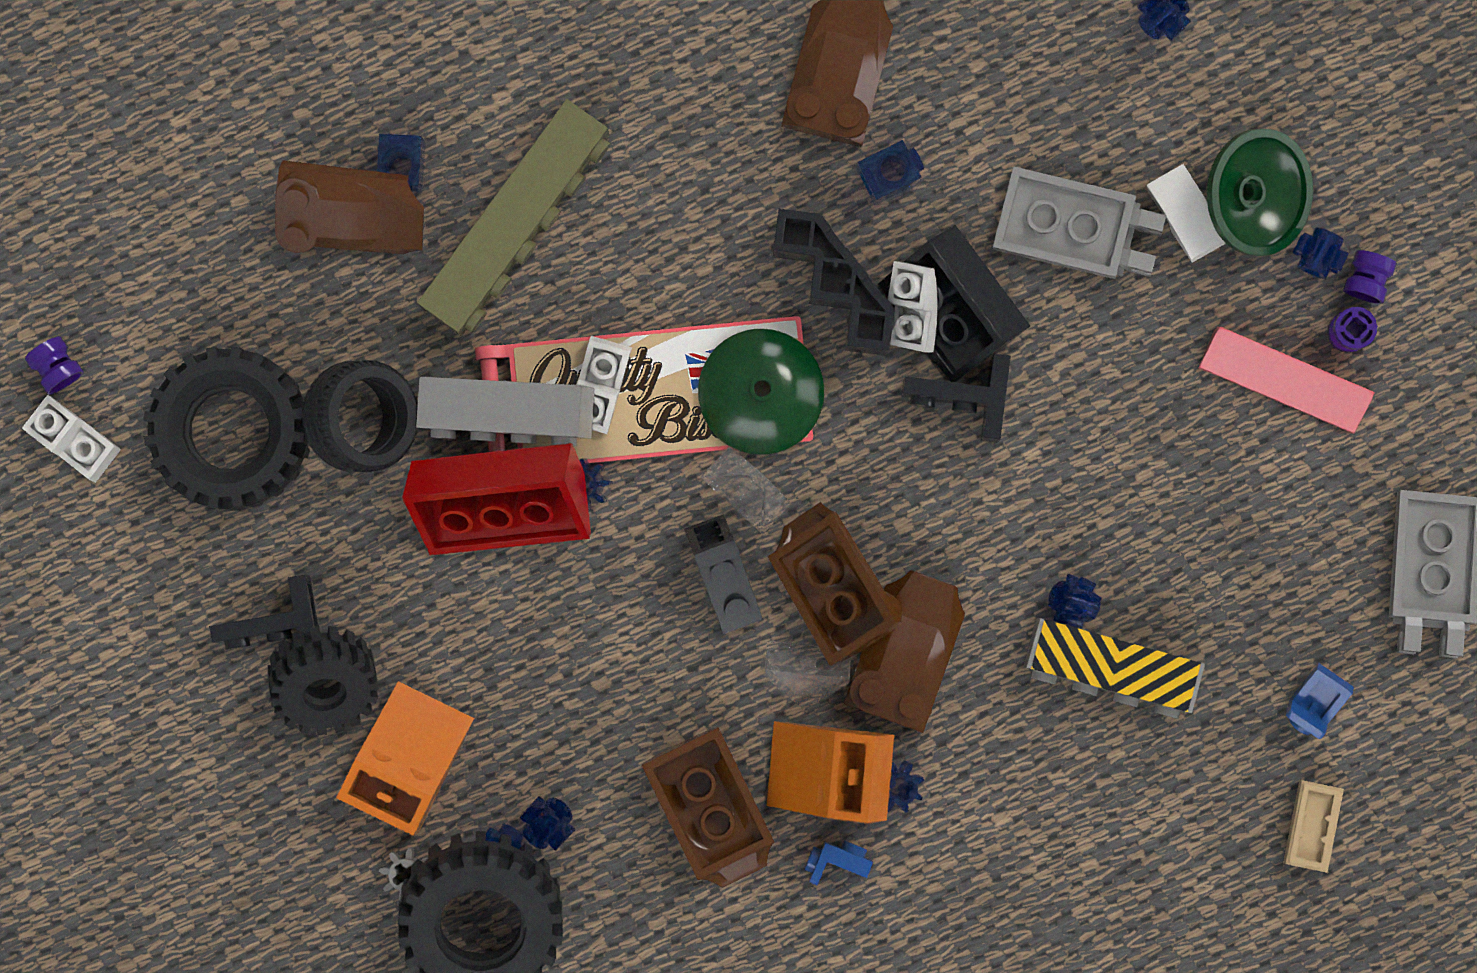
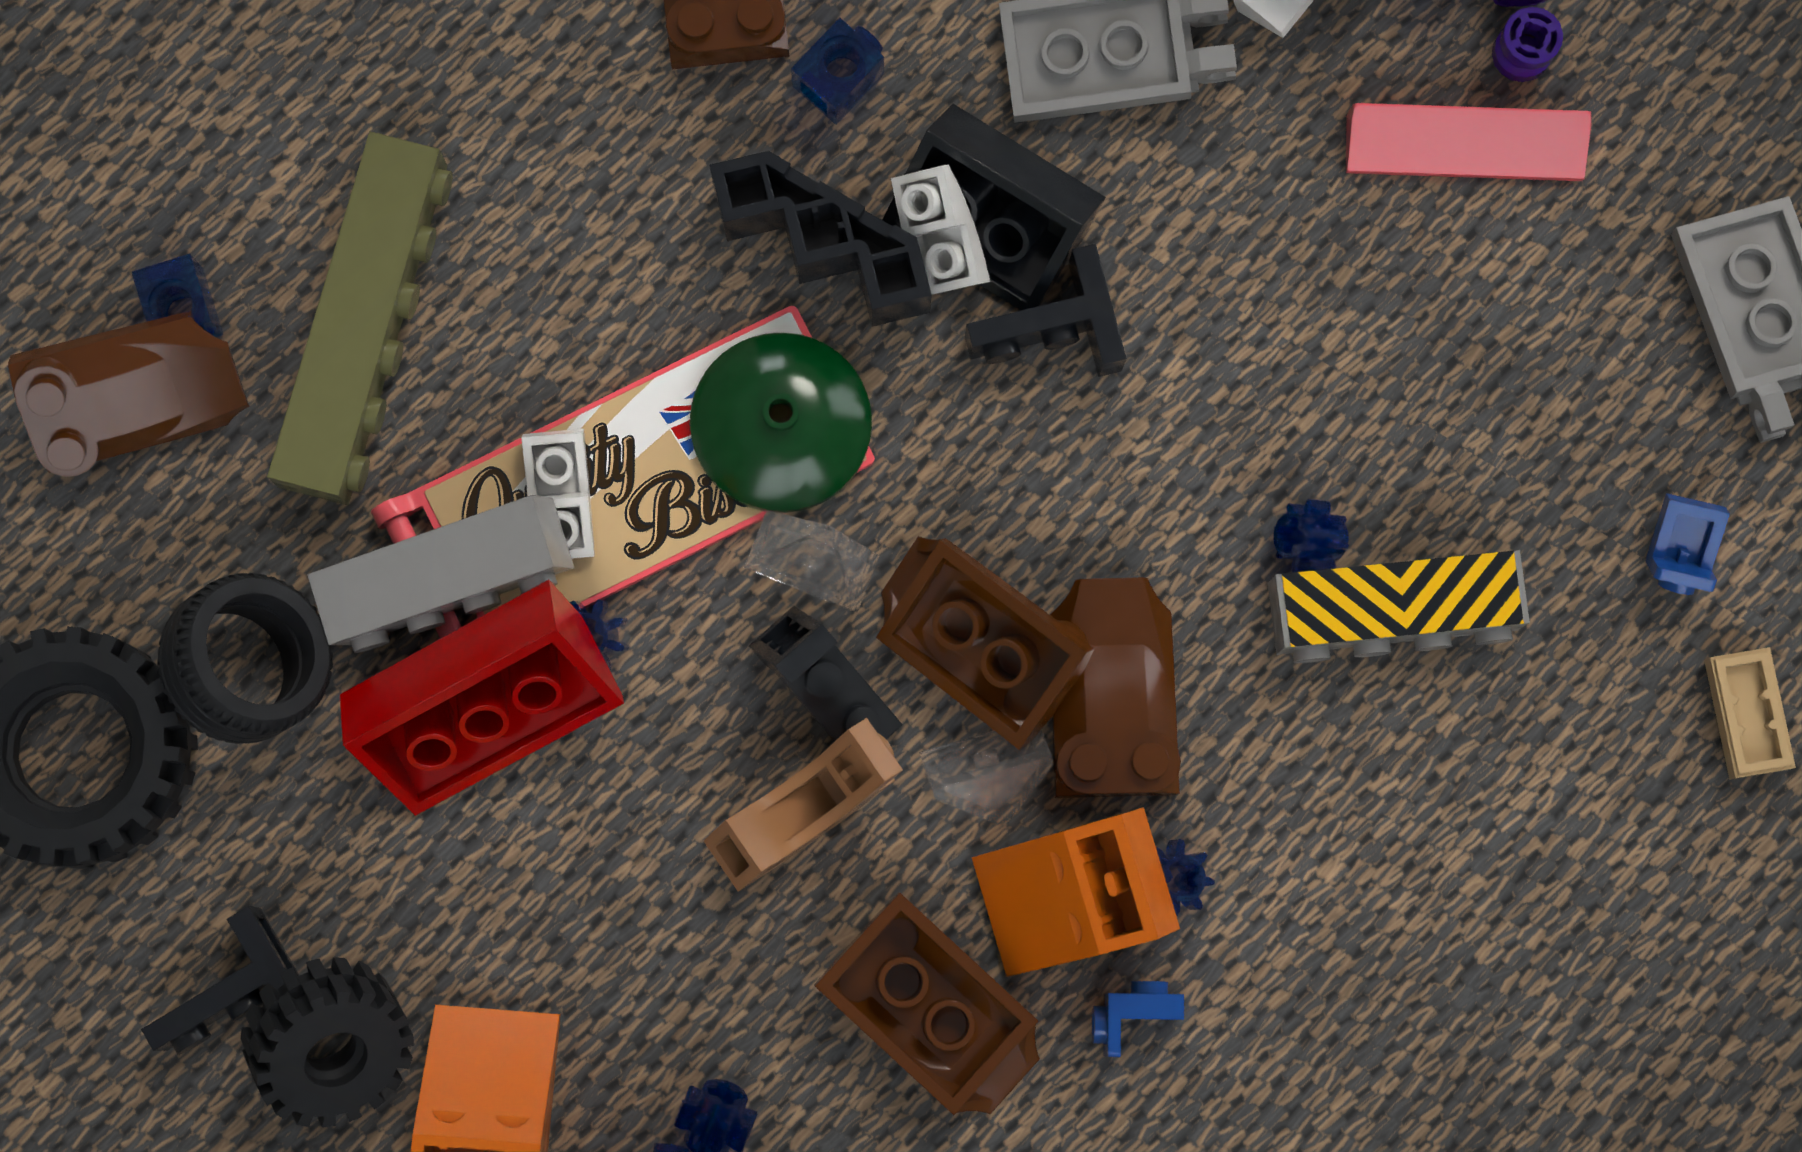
camera: 25 degrees left, 5 degrees down
(678, 648) = (805, 805): none -> medium nougat arch

